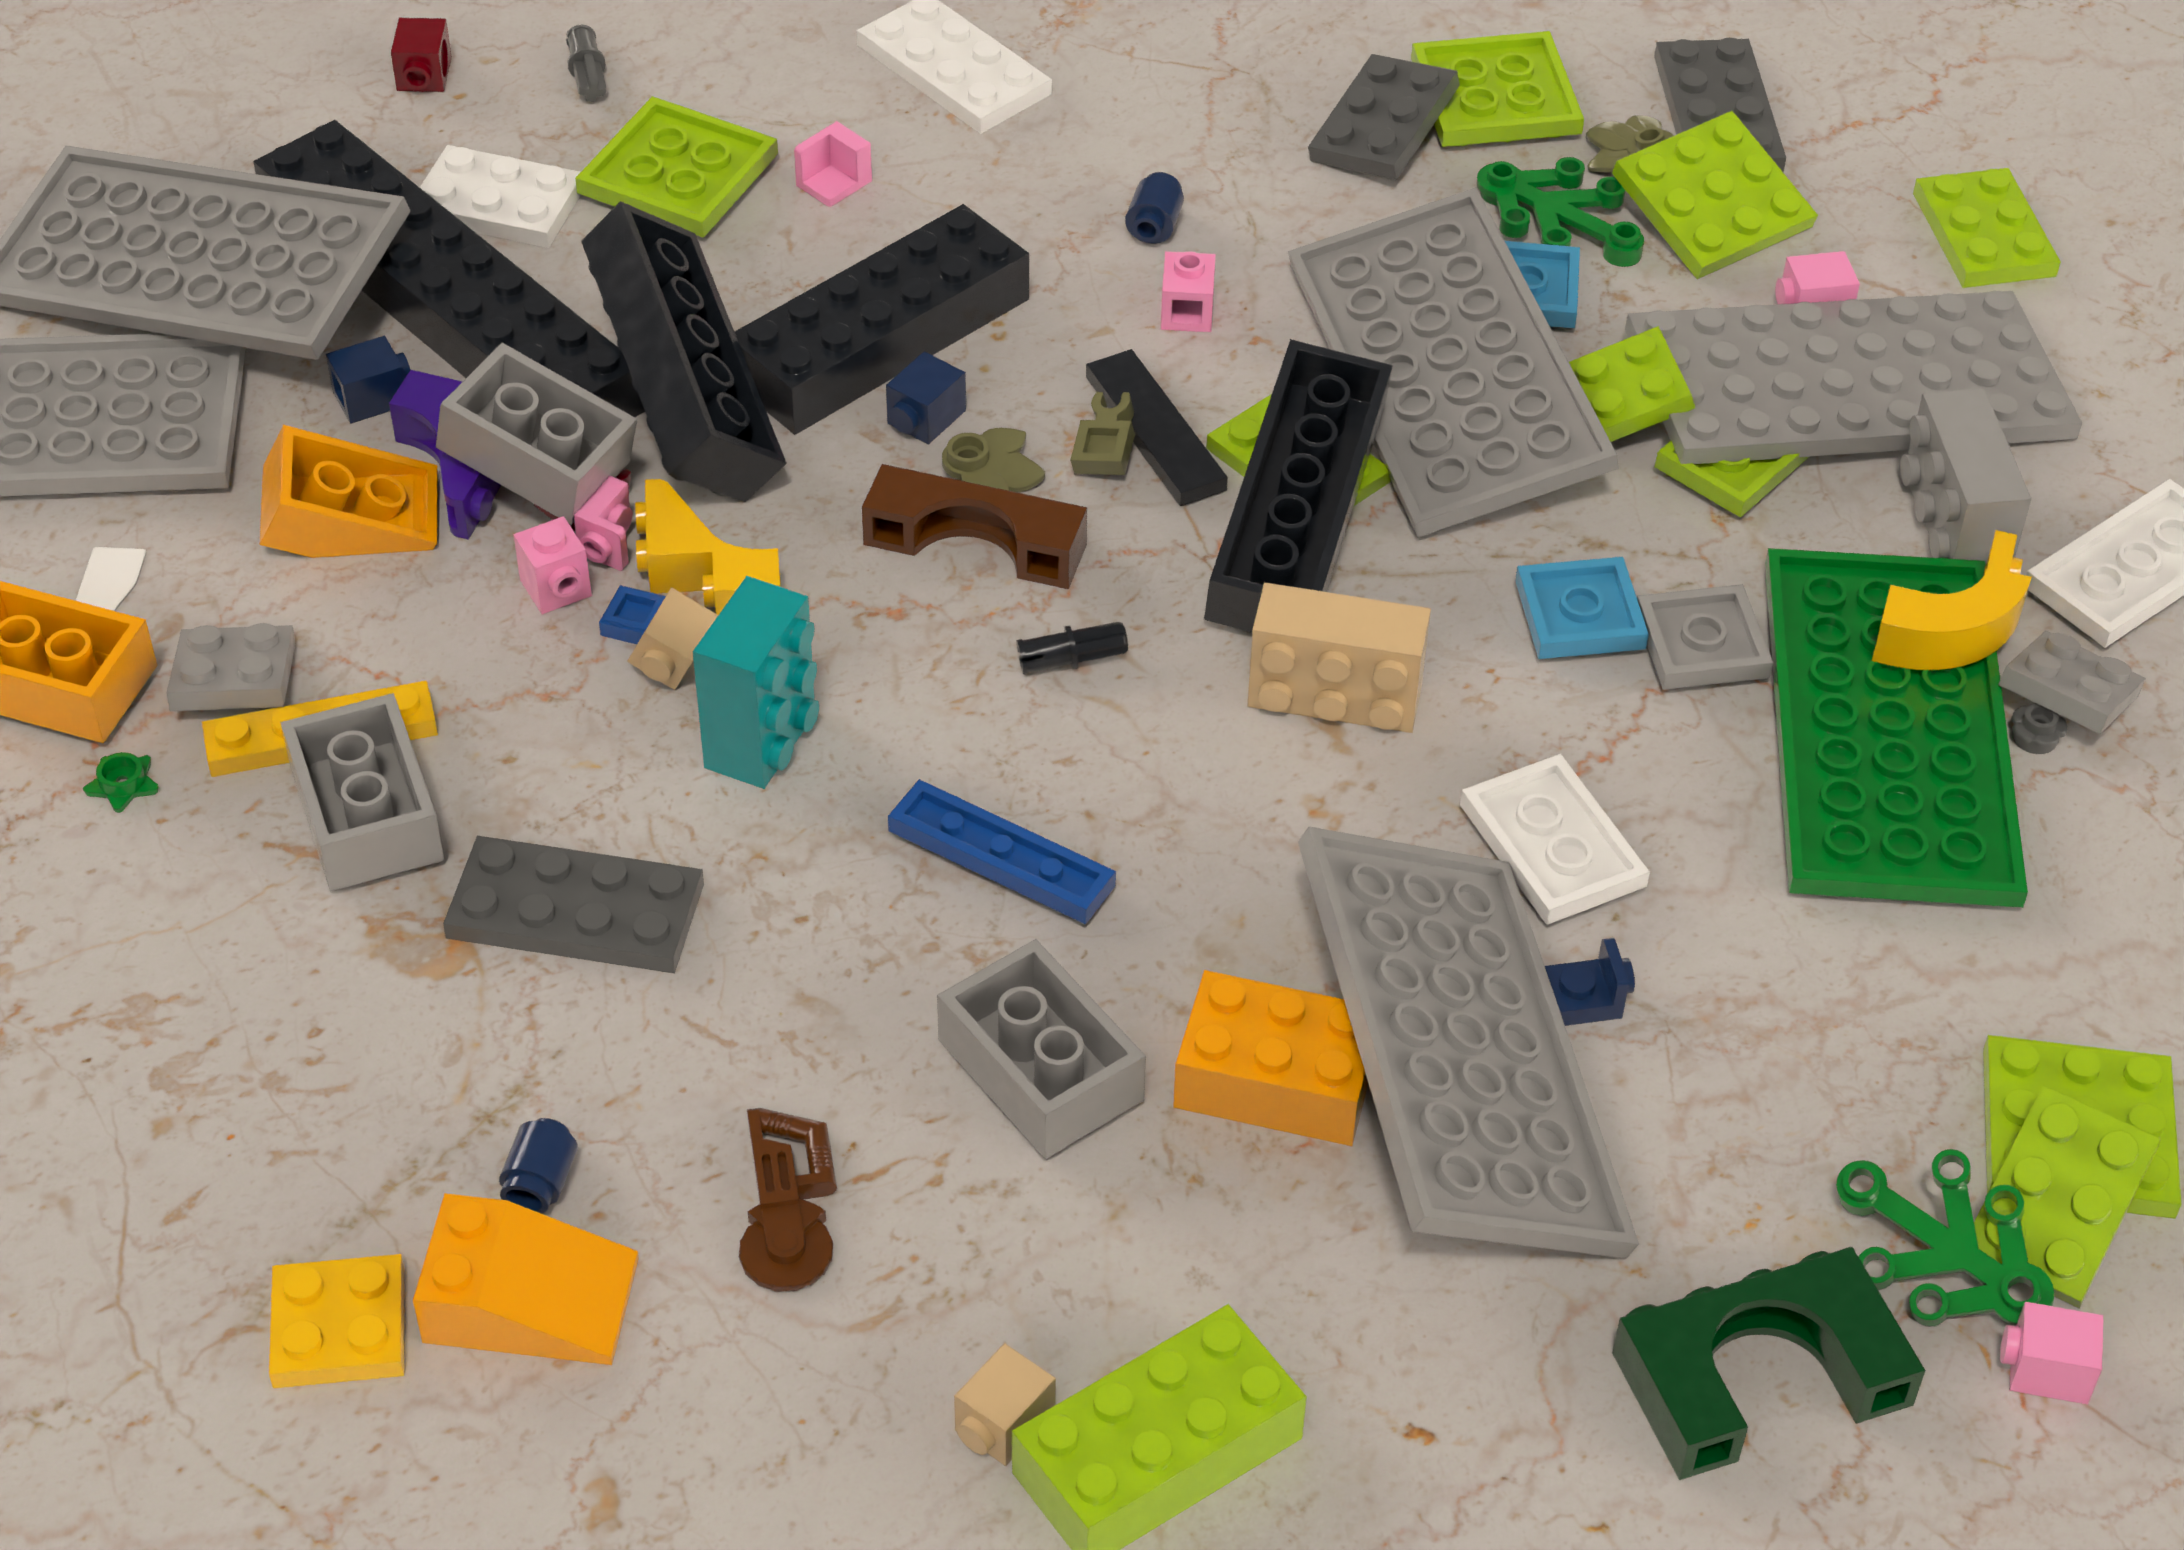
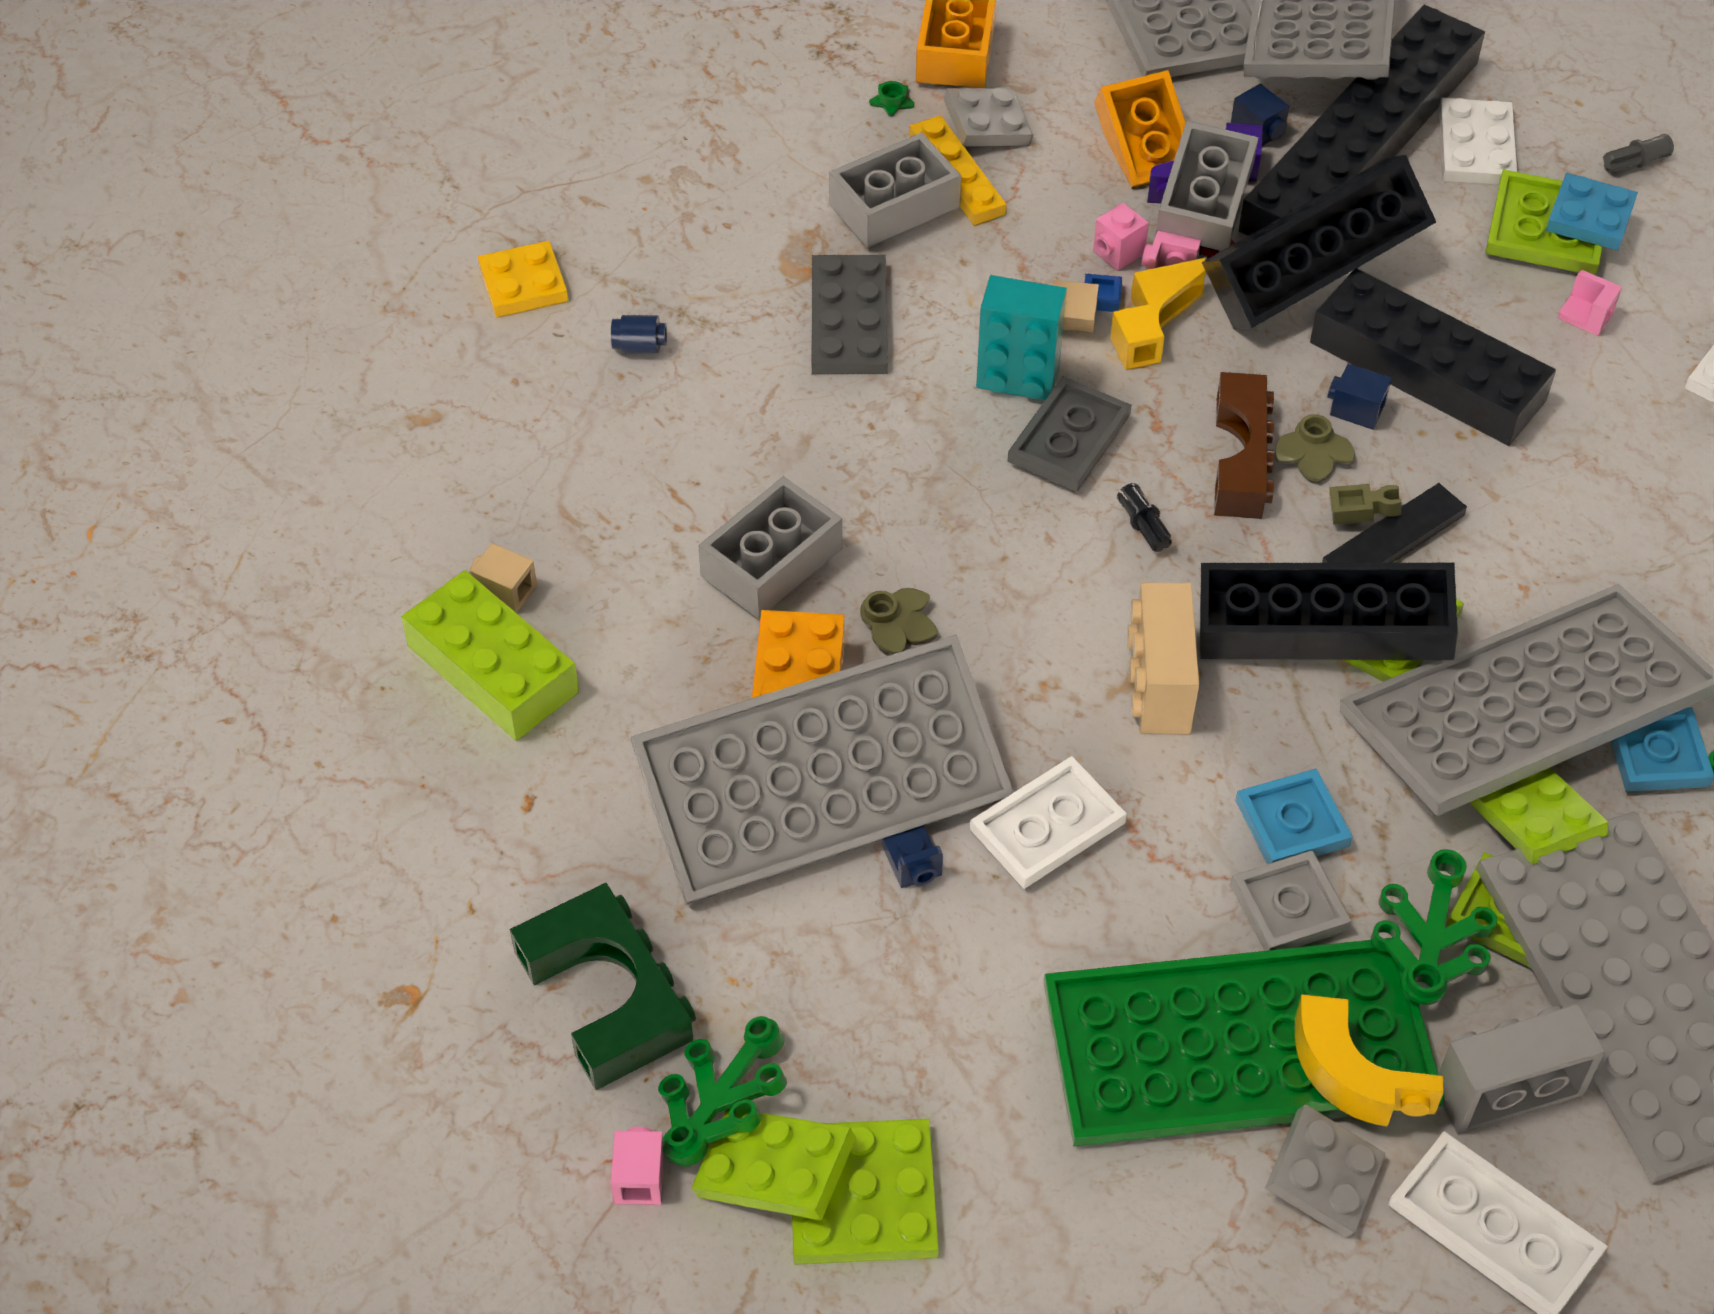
camera: 80 degrees right, 5 degrees up
(110, 576) = (1045, 53): white sticker -> none
(421, 54) = (1596, 67): dark red brick -> none
(521, 1283) = (554, 344): light orange slope -> none
(690, 117) = (1591, 211): none -> dark azure plate
(787, 1236) = (615, 462): reddish brown piece -> none
(901, 695) = (1069, 433): none -> dark grey plate
(1002, 851) = (945, 510): blue plate -> none
(1155, 208) = (1632, 495): dark blue brick -> none
(1181, 940) = (901, 619): none -> olive plate
(1188, 291) = (1544, 529): bright pink brick -> none
(1834, 530) = (1432, 934): none -> green plant
(2037, 728) = (1260, 1152): dark grey plate -> none

